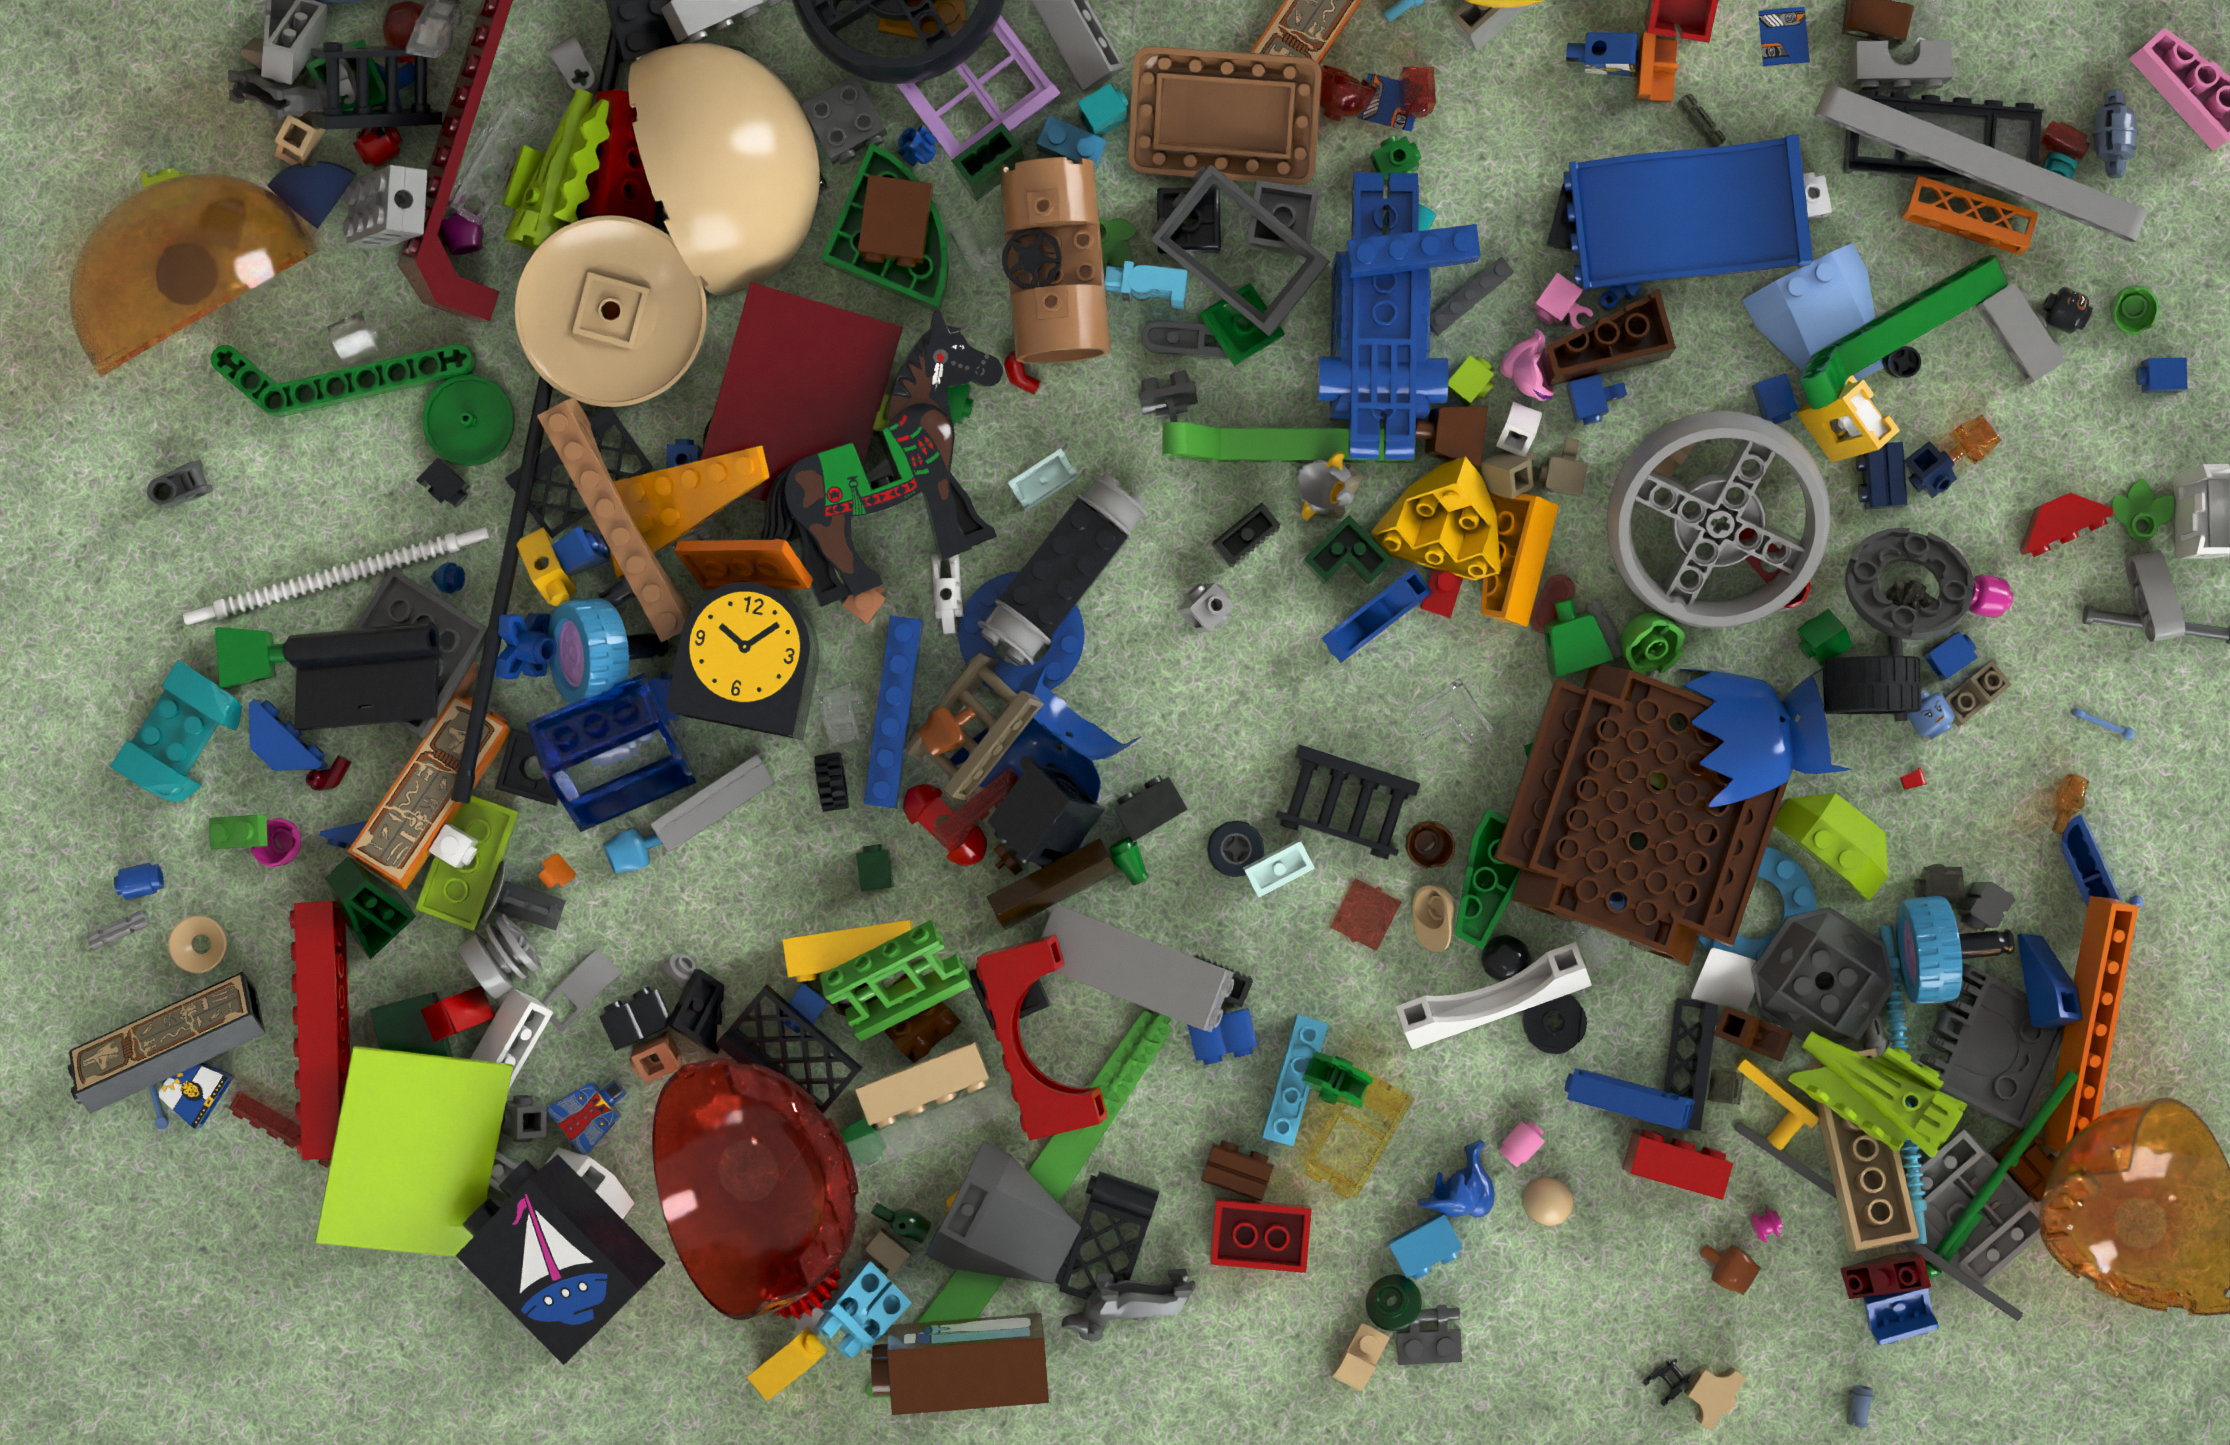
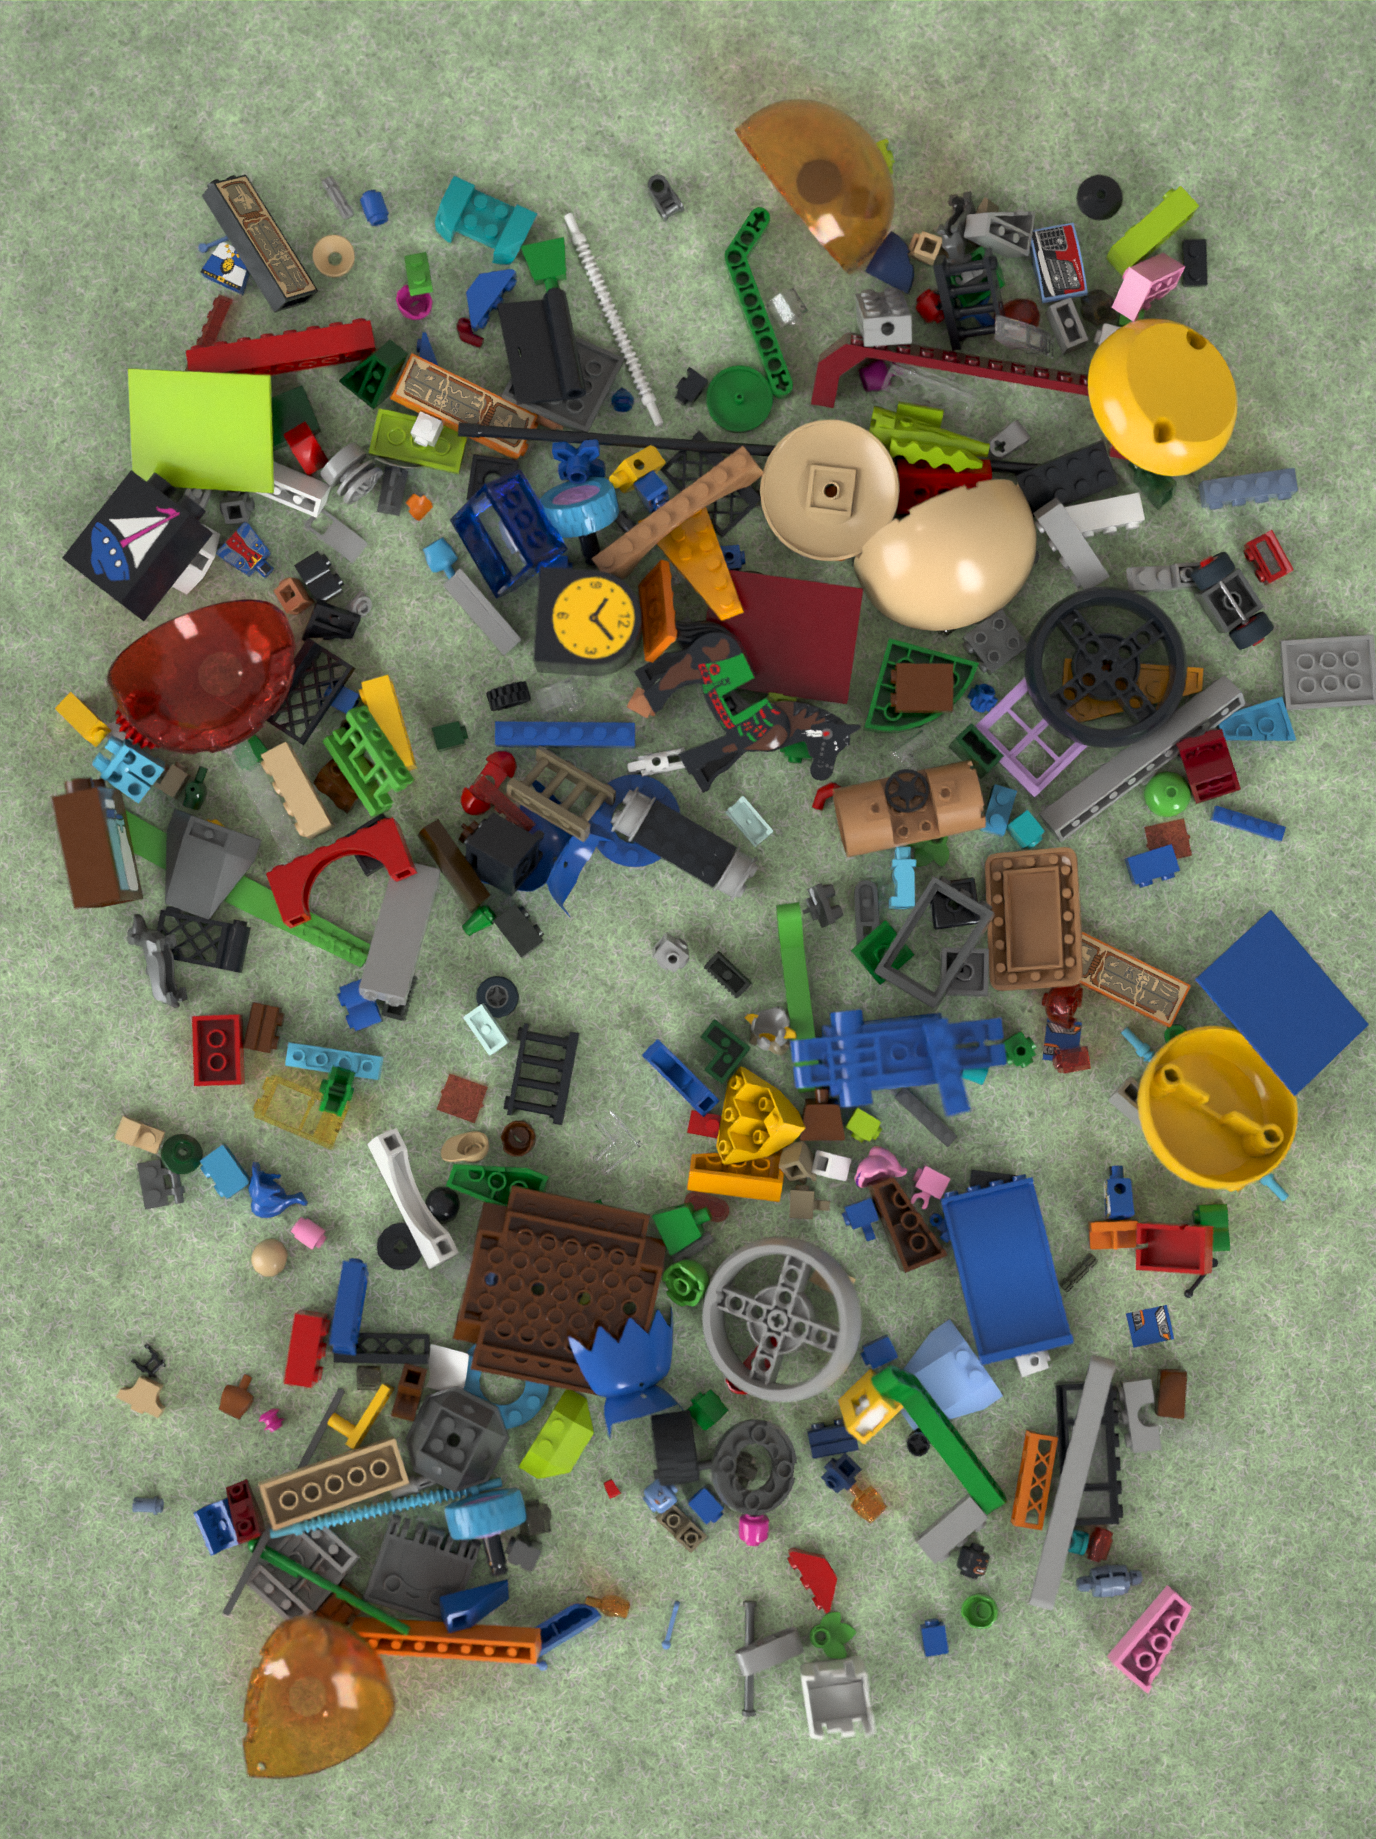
camera: 80 degrees right, 0 degrees up
(943, 730) = (555, 772): dark orange piece -> none
(1875, 1094) = (374, 1485): lime piece -> none

